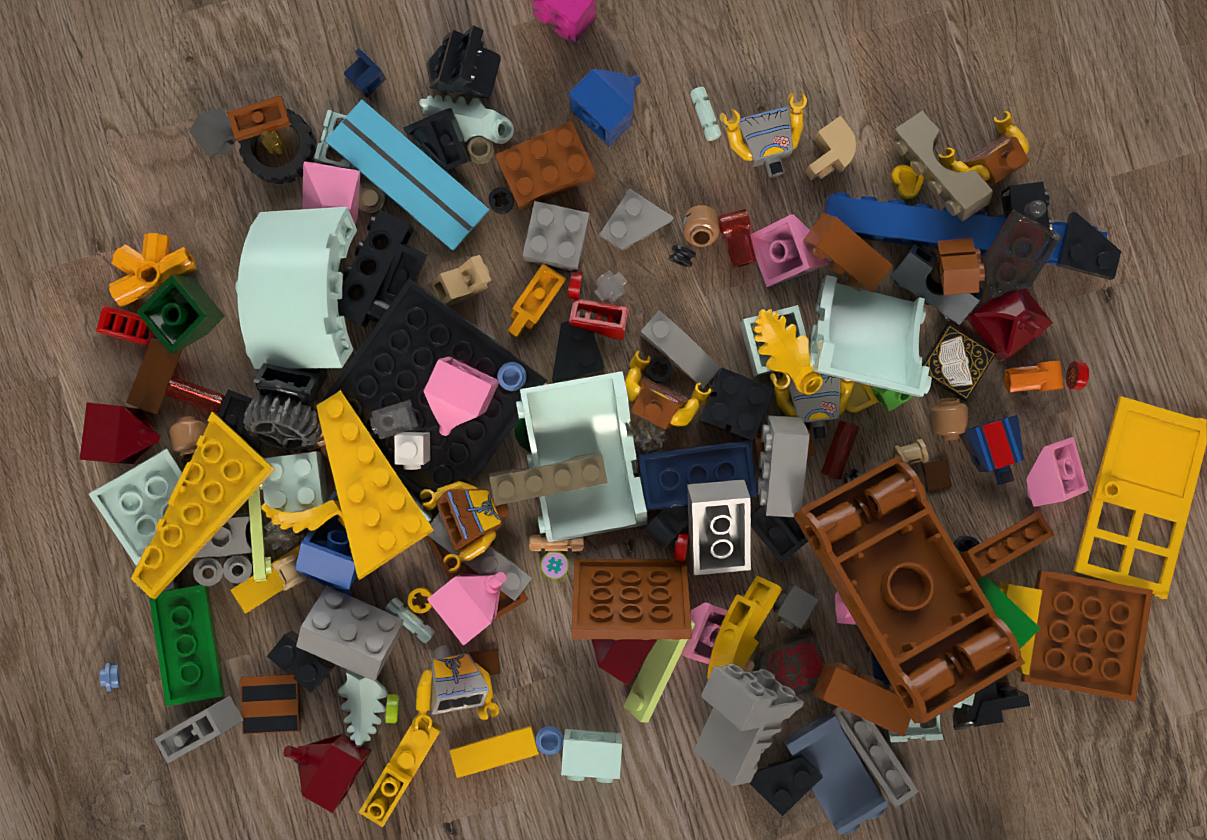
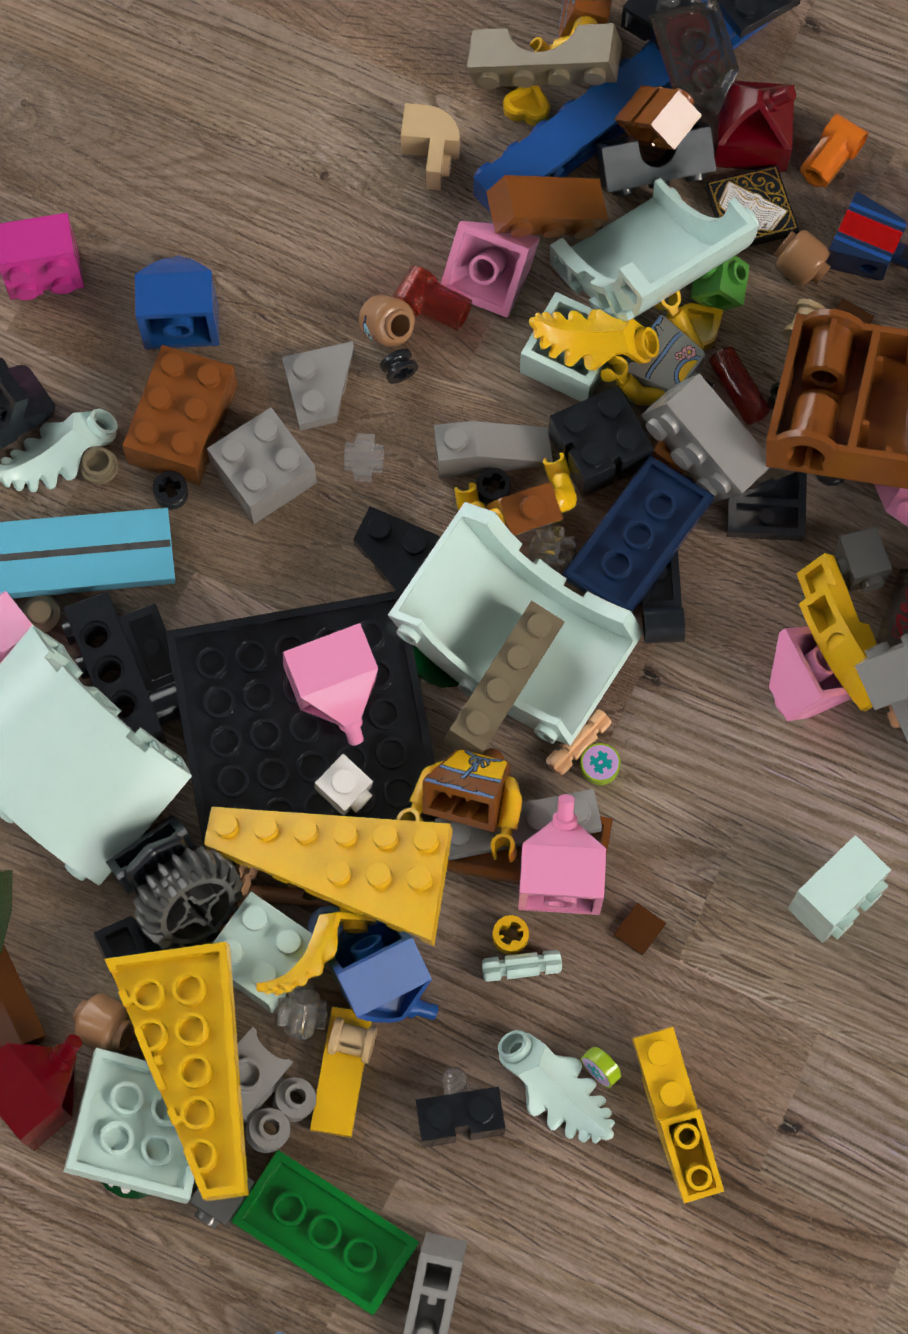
camera: 45 degrees left, 15 degrees down
(194, 395) = (65, 977): clear red piece -> none
(261, 564) = (312, 1061): yellowish green plate -> none
(270, 704) = (475, 1199): tile -> none
(328, 768) = (607, 1184): dark red piece -> none
(349, 633) = (479, 1028): light grey brick -> none
(393, 419) = (294, 777): clear brick -> none
(441, 139) = (50, 490): black wing -> none
(453, 685) = (635, 970): torso -> none
(462, 282) = (219, 587): tan brick -> none
(494, 751) = (745, 1002): yellow tile -> none
(512, 376) = (367, 613): medium blue plate -> none
(535, 299) = (305, 543): light orange hinge -> none
(549, 740) = (785, 931): medium blue plate -> none
(575, 284) = (328, 489): red tile -> none
(611, 311) = (395, 486): red slope -> none
(622, 656) = (748, 758): dark red piece -> none
(630, 599) = (709, 698): dark orange plate -> none
(654, 677) = (804, 741): yellowish green plate -> none
(680, 548) = (699, 619): red tile -> none
(705, 113) = (278, 226): light aqua axle -> none
(719, 527) = (712, 554): light grey brick -> none
(767, 135) = (358, 186): torso -> none
(1077, 375) = (867, 111): red tile -> none

